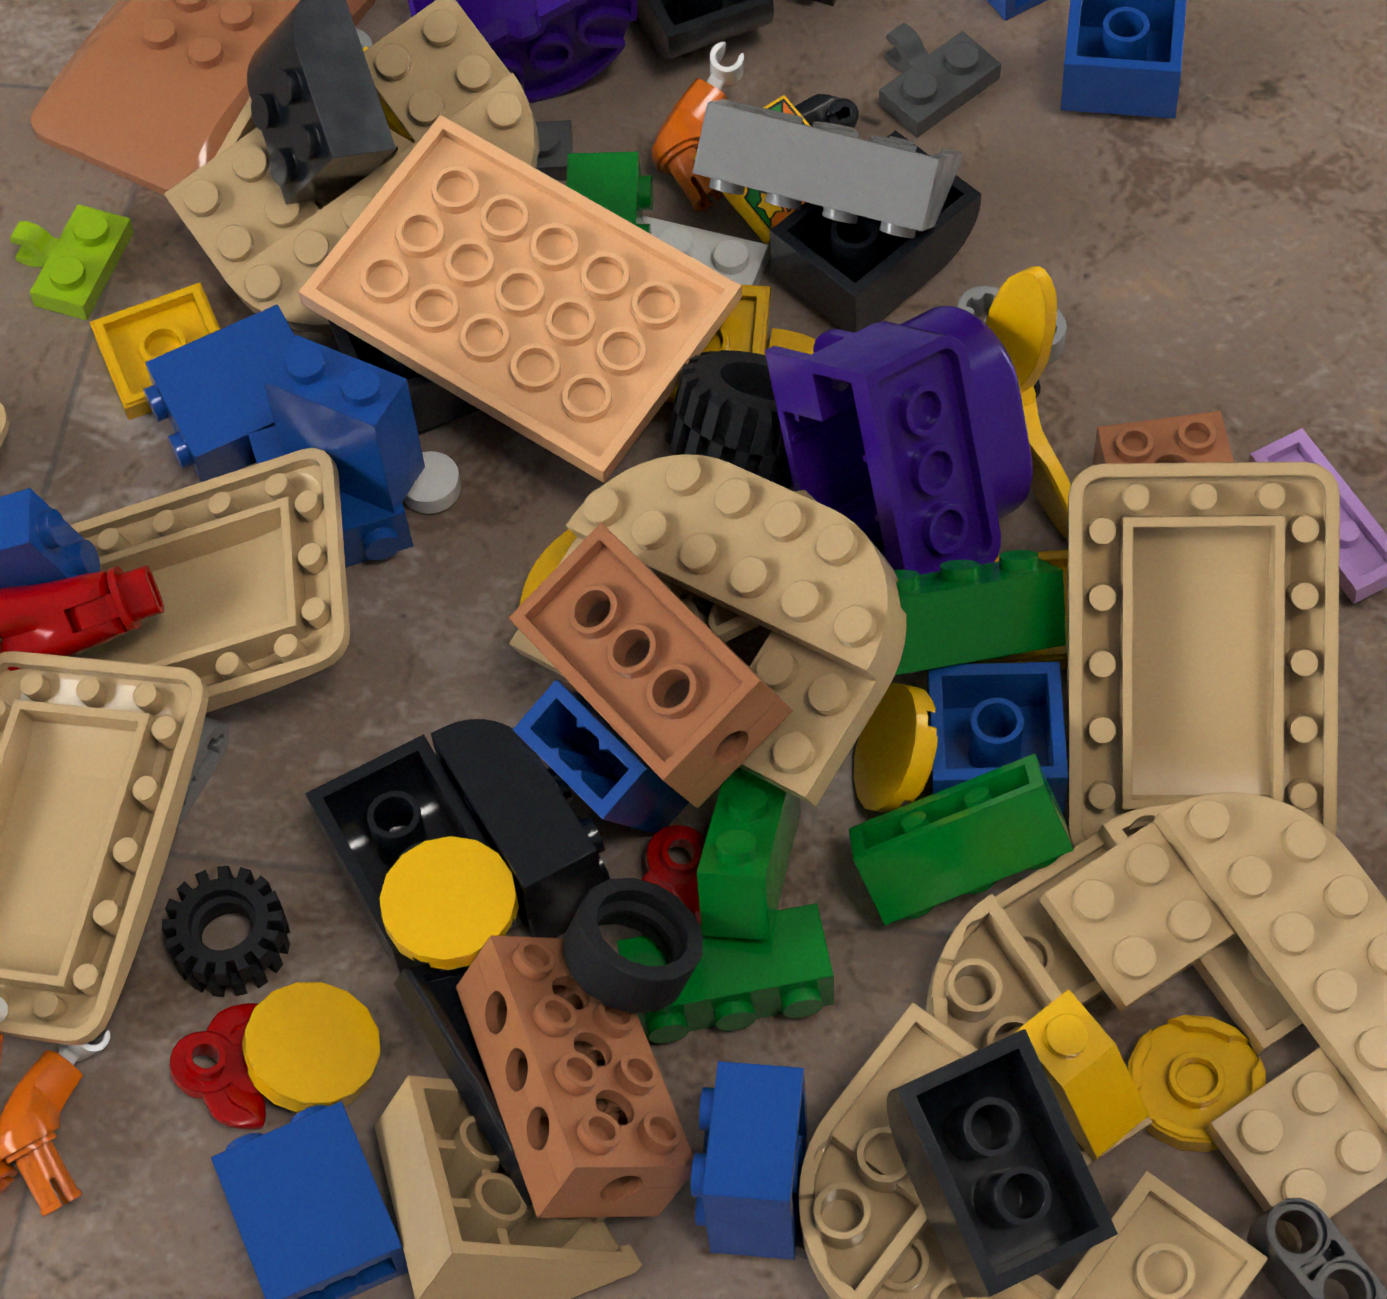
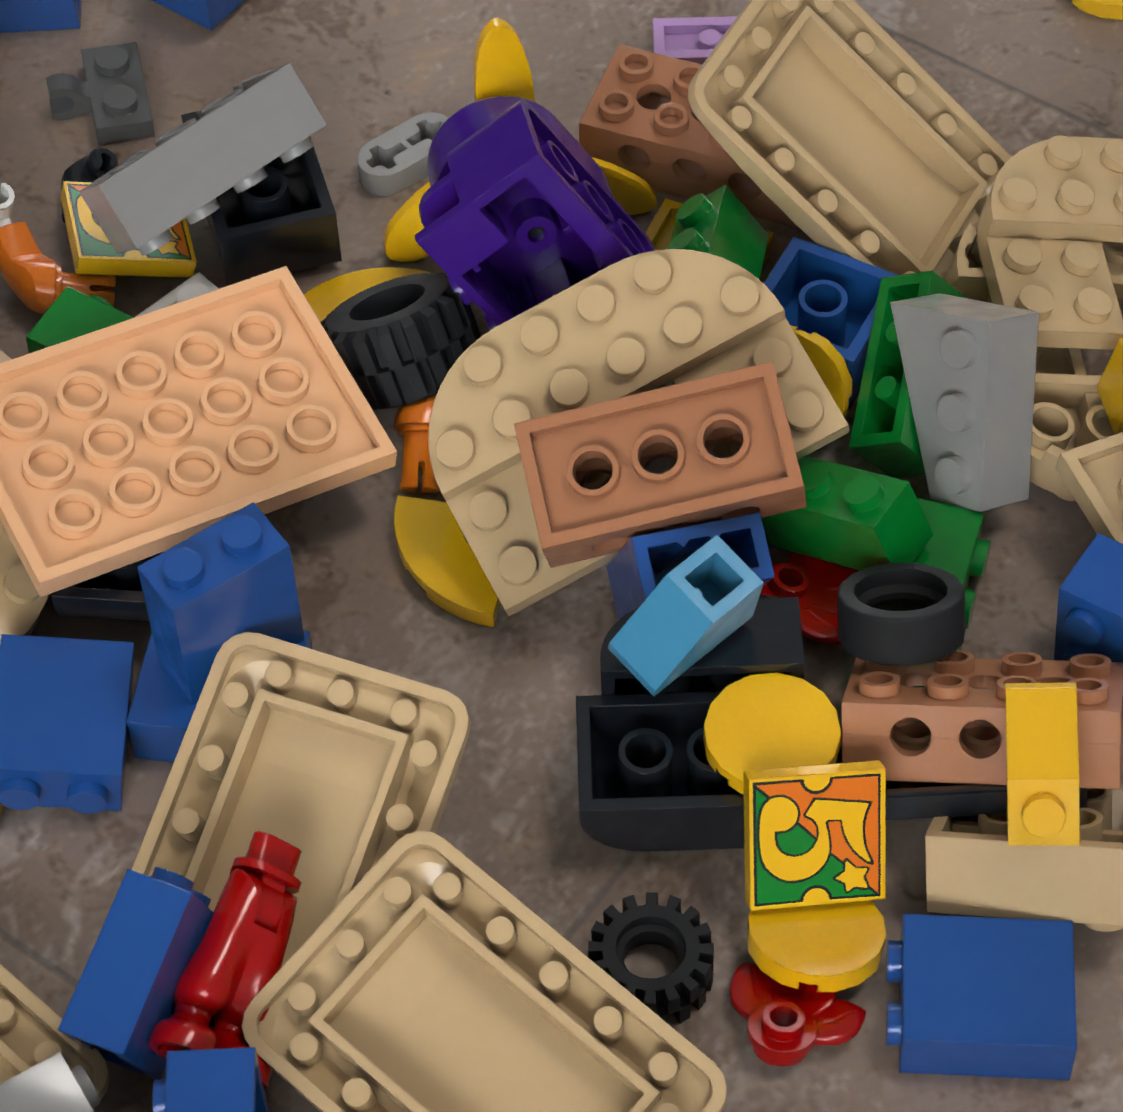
camera: 65 degrees left, 5 degrees down
(372, 987) = (815, 835): none -> tile
(494, 1131) = (1042, 764): none -> yellow slope
(495, 763) = (687, 615): none -> dark azure slope
(932, 890) = (970, 395): none -> light grey wedge

